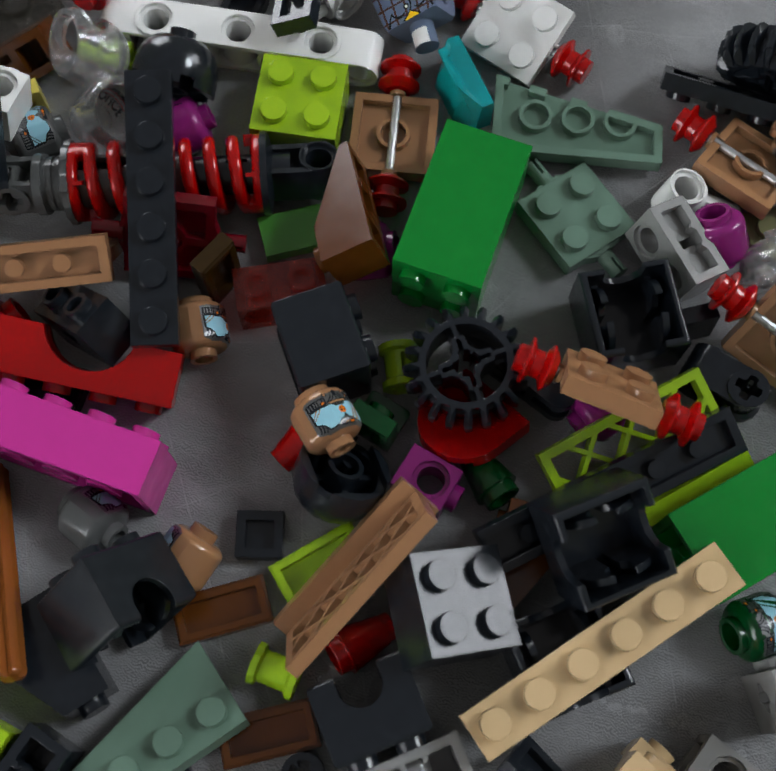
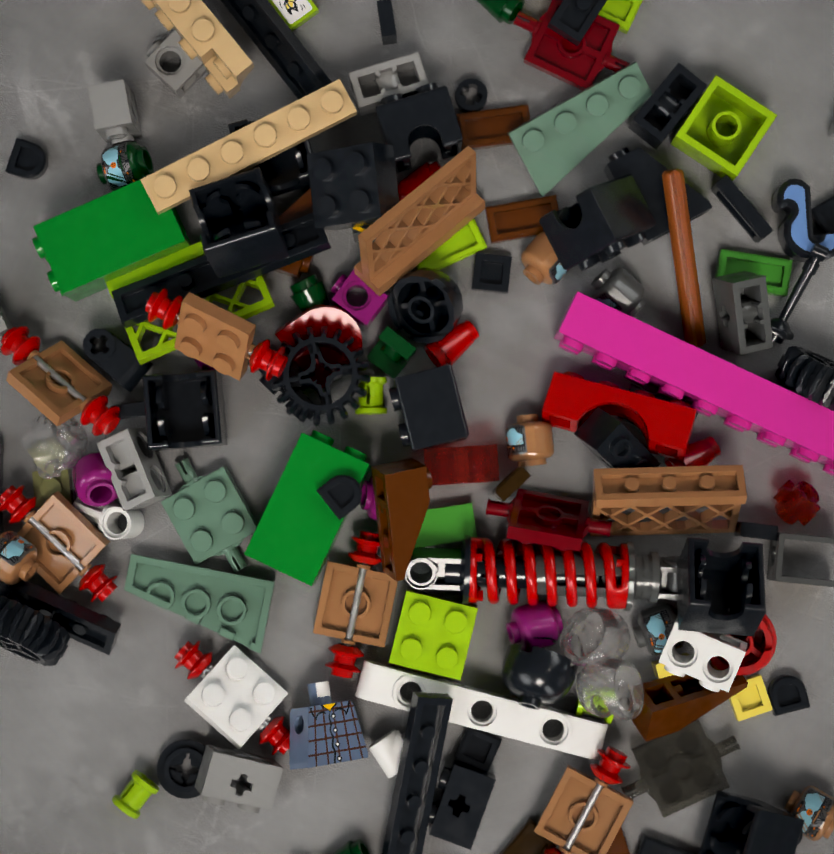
camera: 170 degrees left, 15 degrees up
(151, 209) = (558, 525): black plate -> none
(269, 669) = (489, 170): lime bush -> none
(325, 421) = (433, 340): head -> none
(423, 217) = (341, 494): none -> black tile
(462, 86) = (292, 647): teal slope -> none

